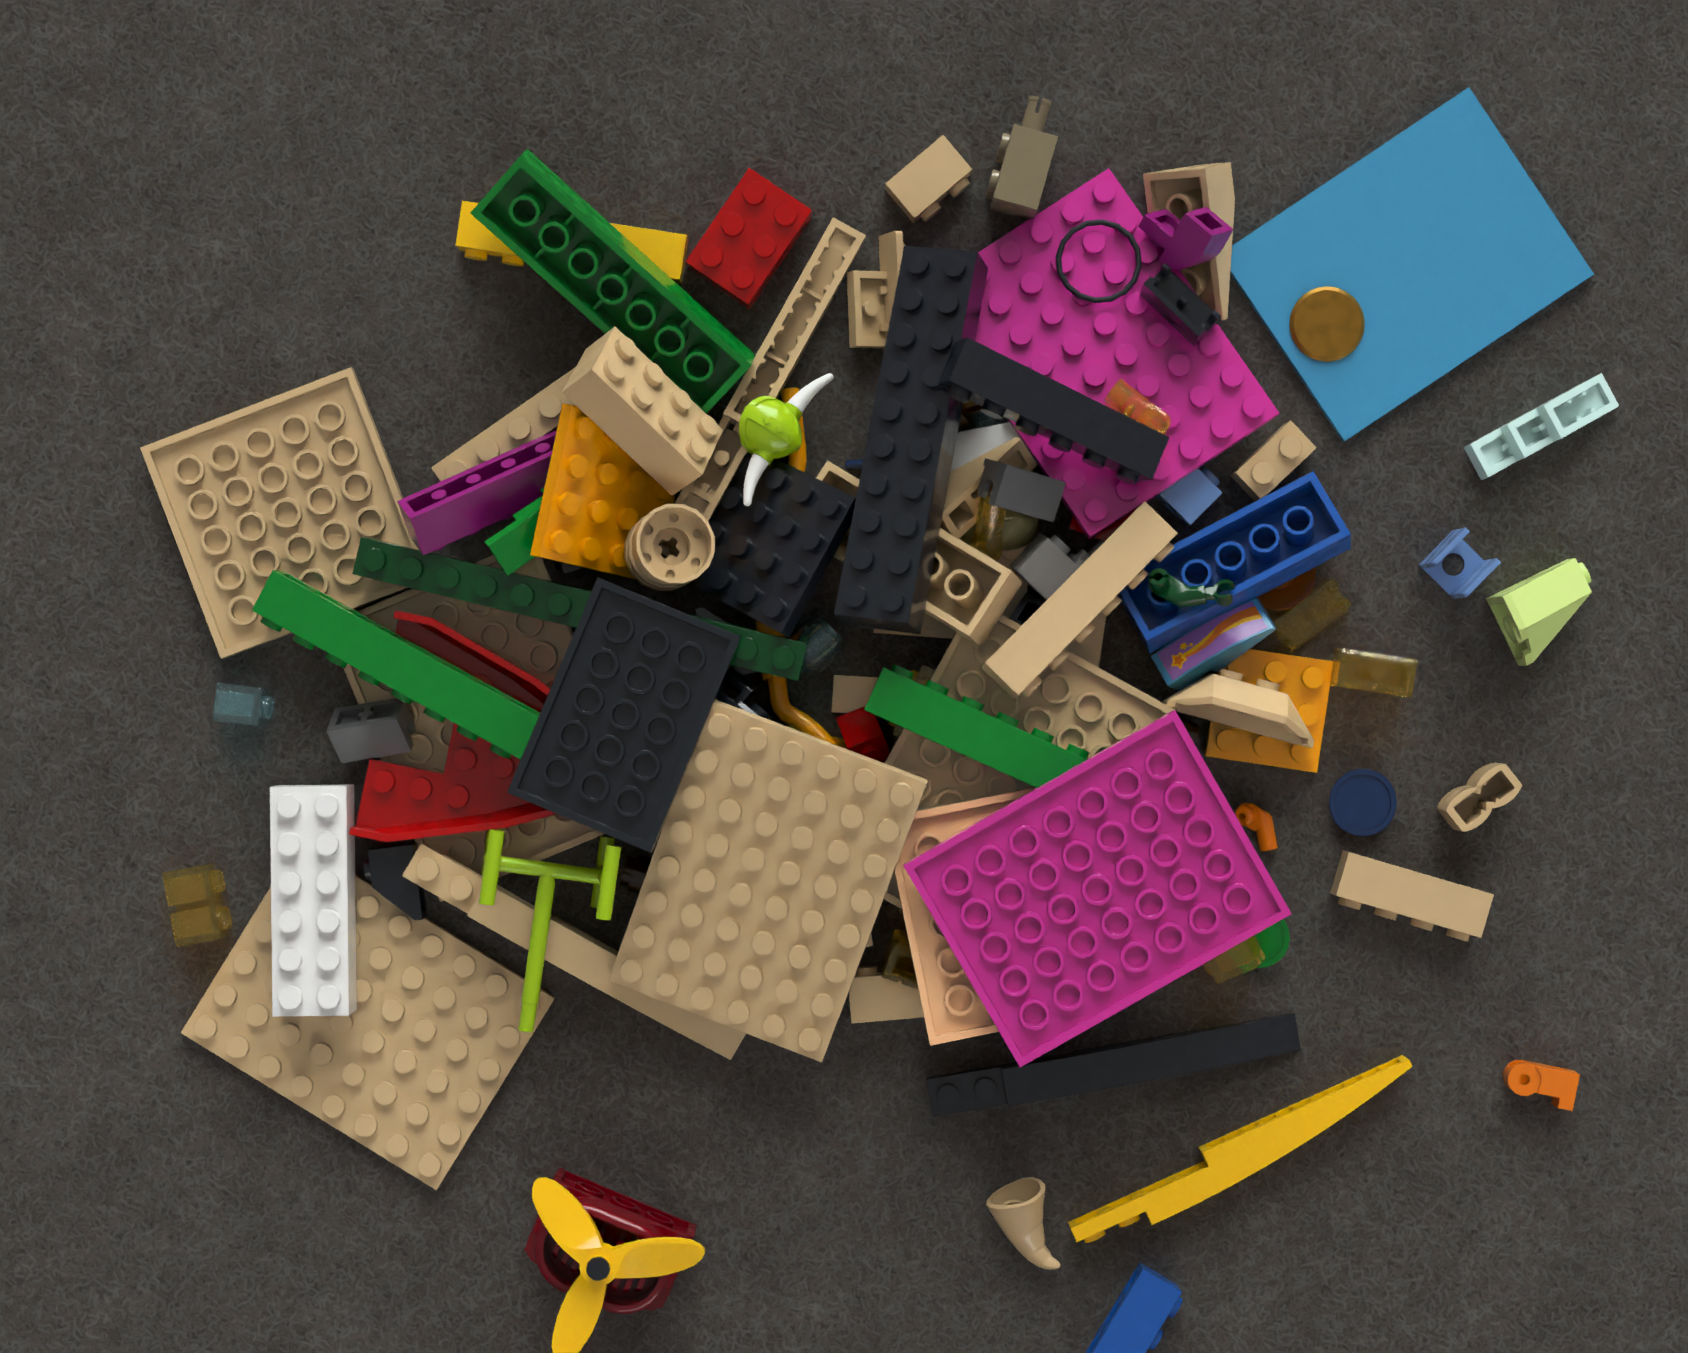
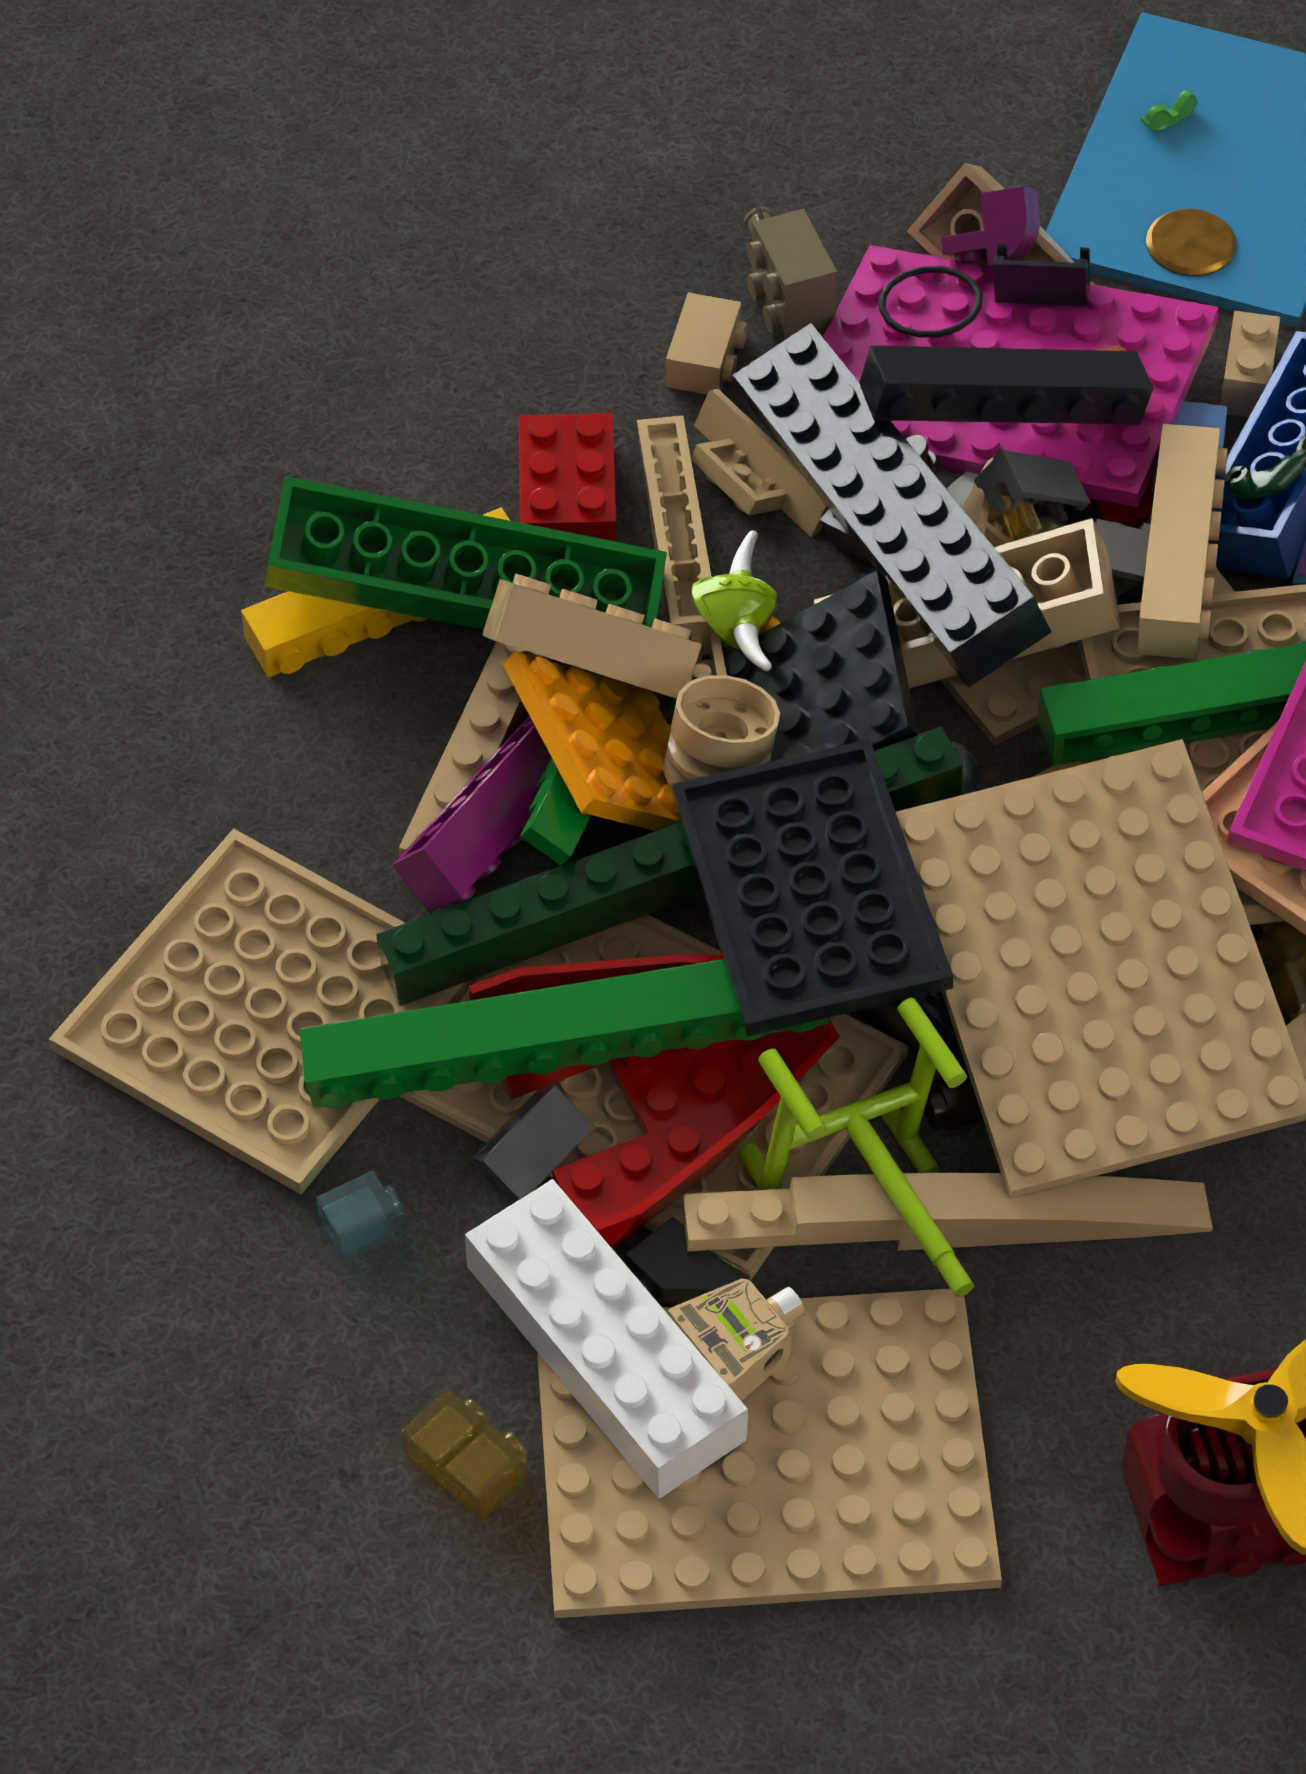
camera: 40 degrees left, 35 degrees down
(389, 951) = (740, 1331): none -> tan torso
(1405, 203) = (1162, 117): none -> bright green piece

